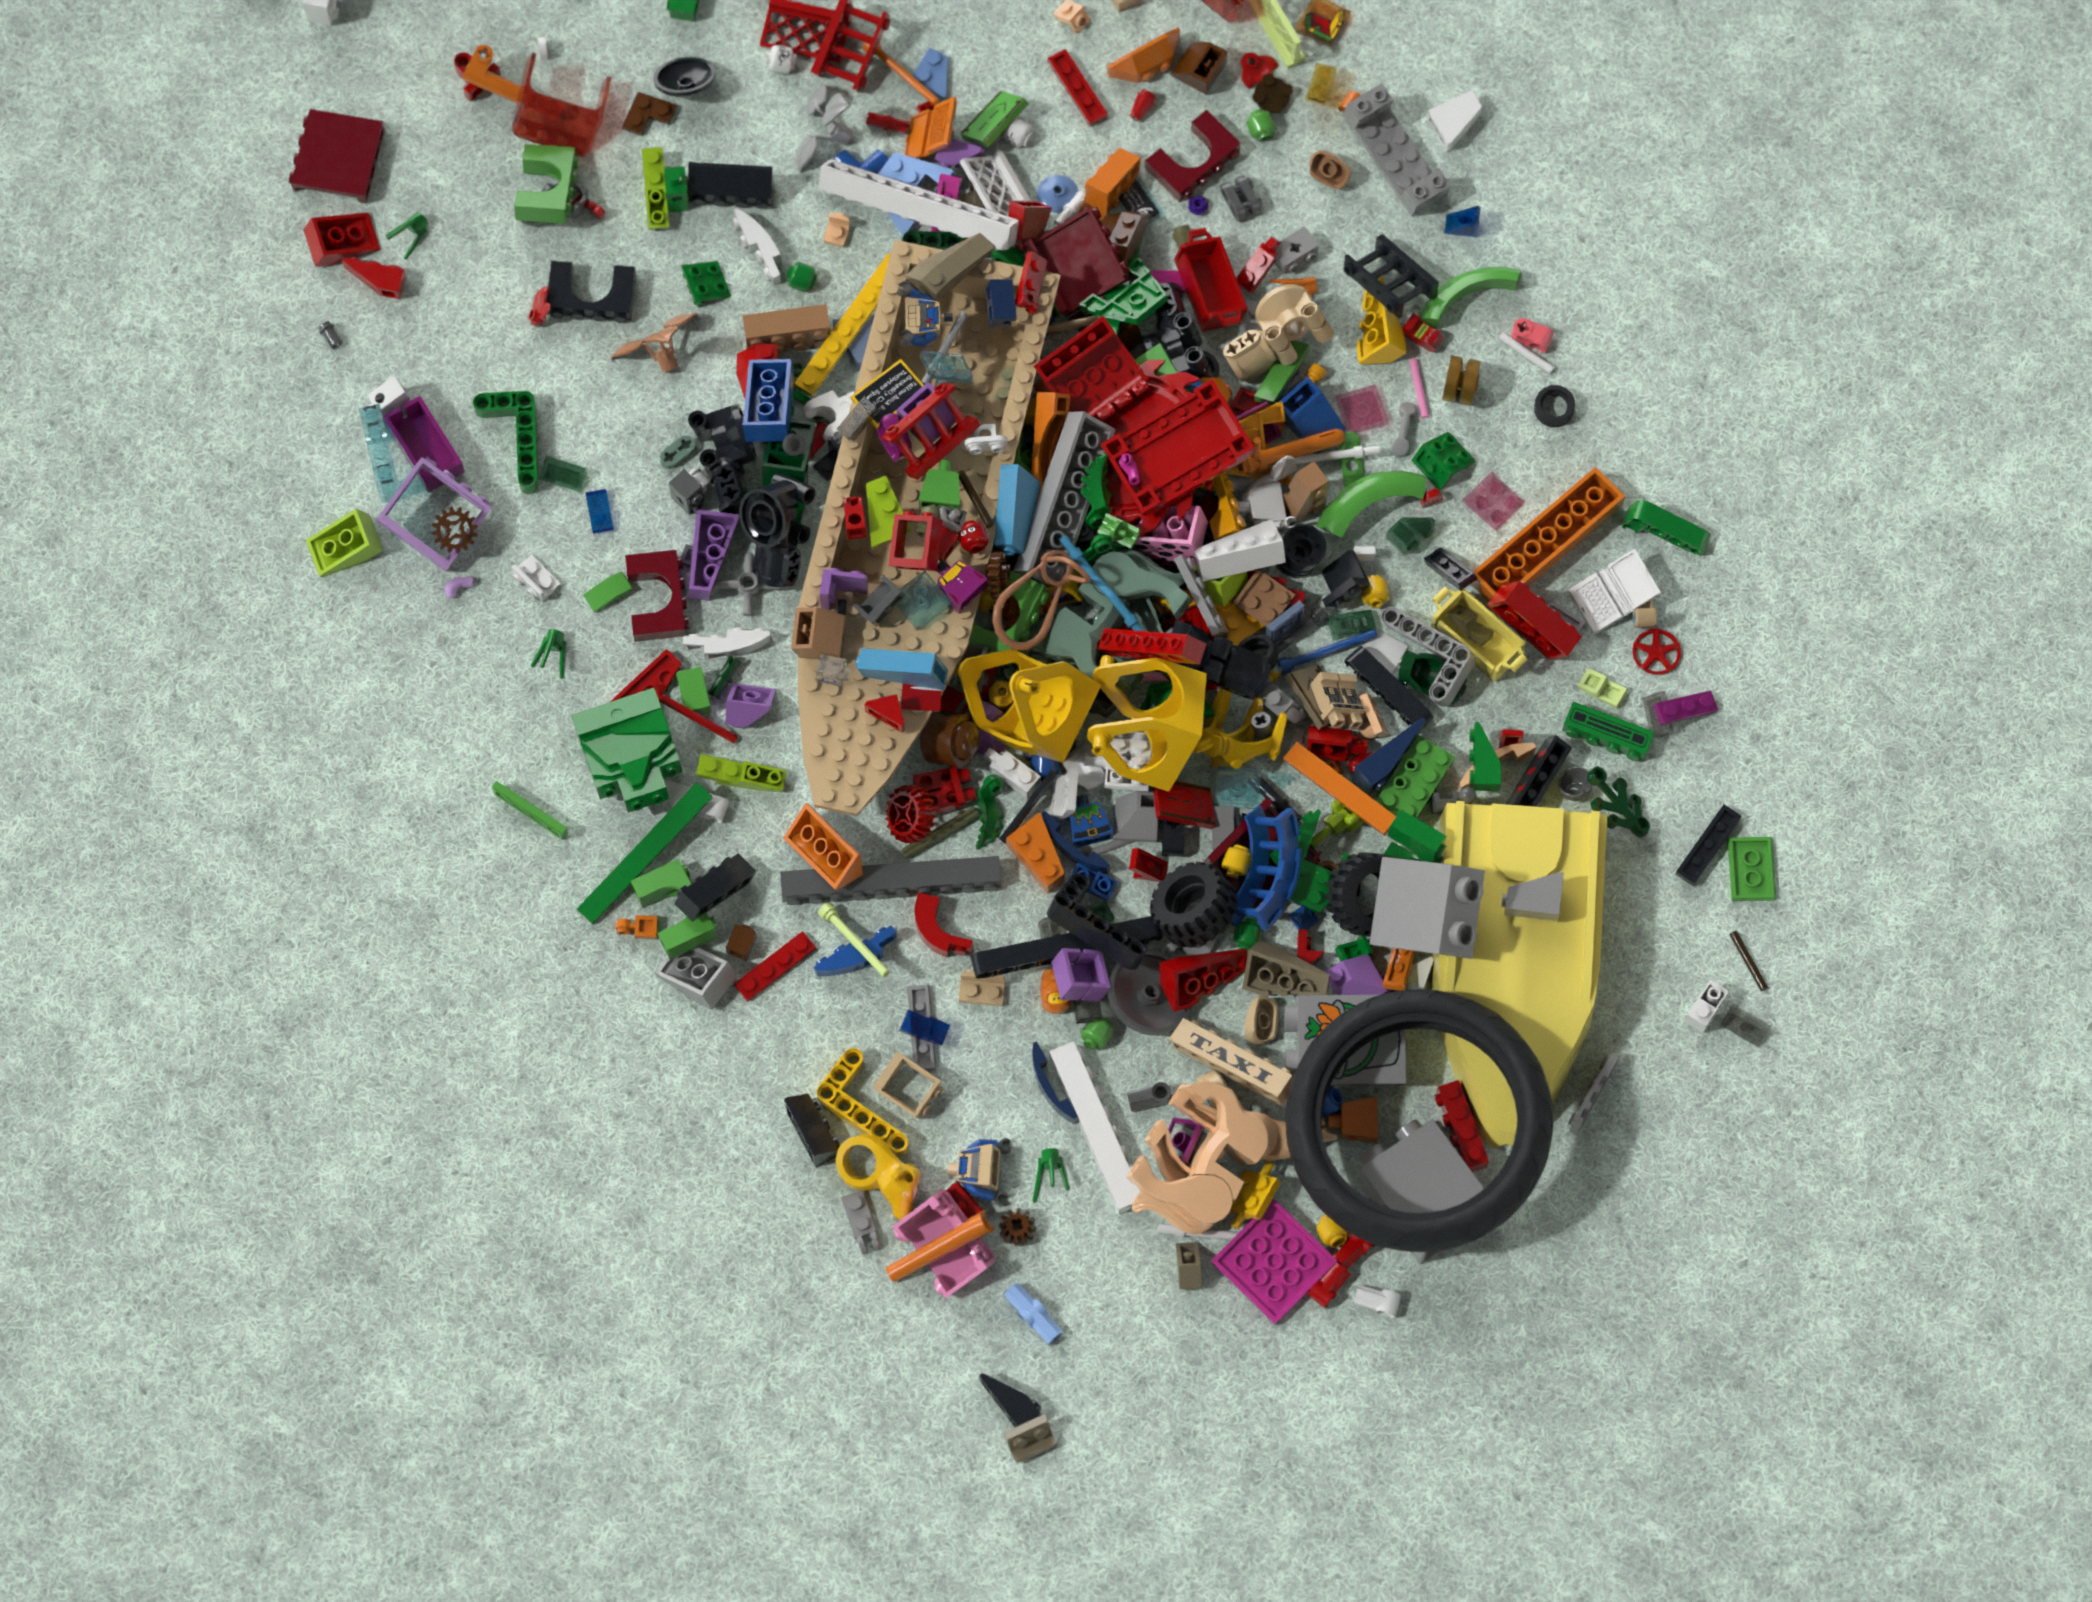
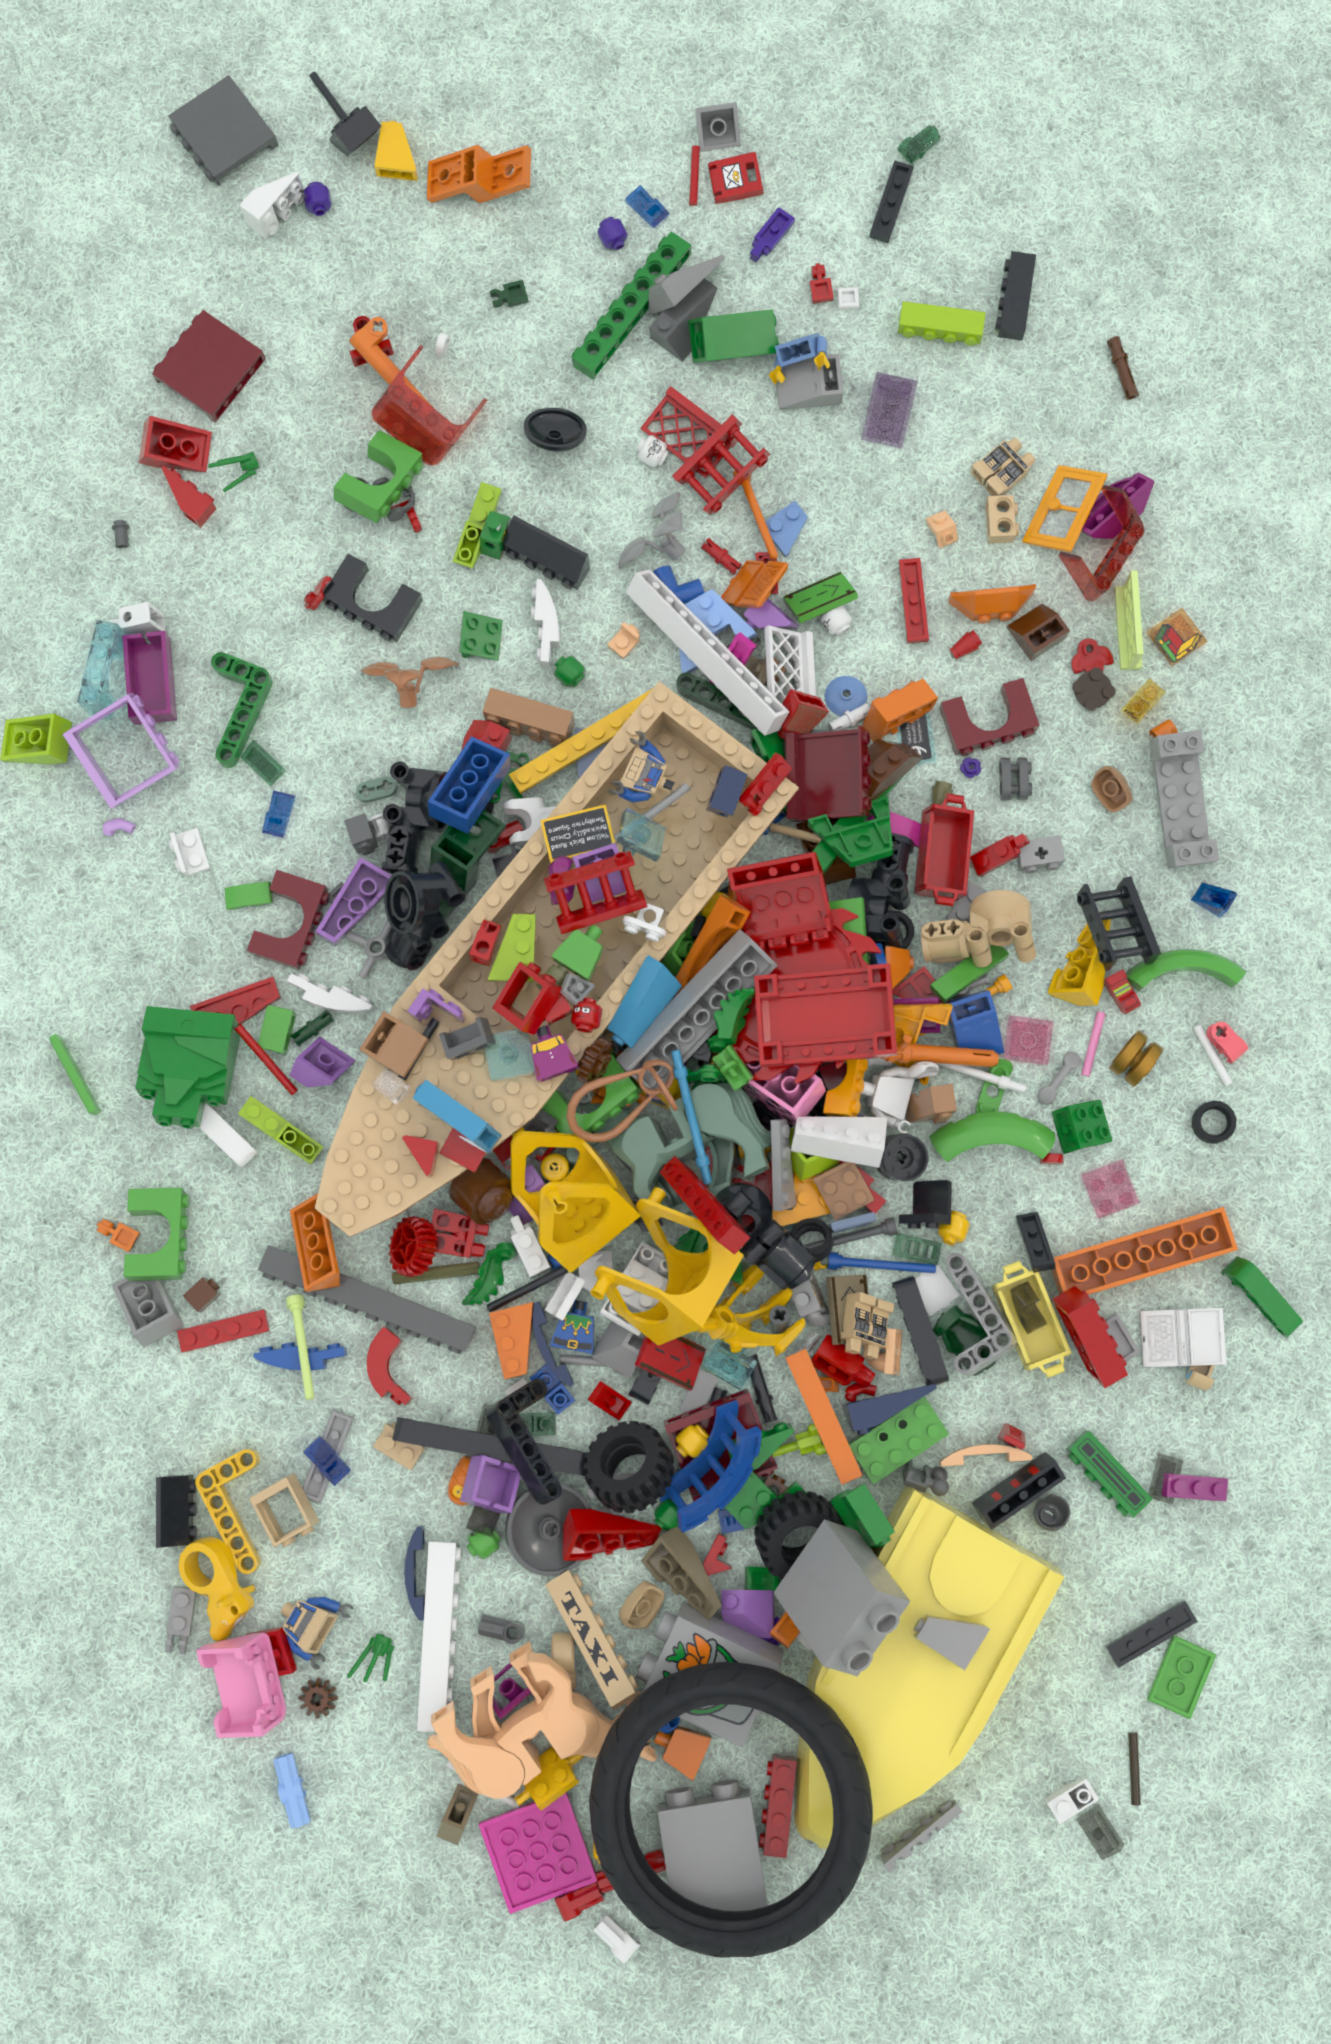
camera: 30 degrees right, 10 degrees up
(463, 536) = (133, 783): reddish brown gear -> none
(552, 642) = (175, 920): green plant -> none
(644, 853) = (156, 1166): green tile -> none
(645, 108) = (507, 443): reddish brown plate -> none
(714, 887) = (197, 1234): black brick -> none
(793, 444) = (469, 840): dark grey tile -> none
(858, 419) = (536, 847): clear smoke slope -> none
(944, 270) = (693, 733): dark tan wedge -> none
(972, 1229) = (271, 1690): orange axle -> none
(975, 499) = (608, 975): dark brown bar -> none
(1013, 1403) = (231, 1872): black slope -> none
(1030, 1439) = (228, 1917): dark tan bracket -> none
(1130, 468) = (771, 1014): dark pink arm -> none
(1261, 125) = (1068, 715): bright green head -> none
(1307, 283) = (1034, 892): orange plant -> none
(1365, 553) = (962, 1185): white tile -> none
(1407, 531) = (1013, 1184): clear green slope -> none
(1454, 118) = (1255, 791): white slope -> none
(1486, 765) = (974, 1457): green slope -> none
(1602, 689) = (1124, 1426): yellowish green slope -> none
(1619, 804) = (1091, 1582): dark green plant -> none
(1656, 651) = (1194, 1413): red wheel -> none

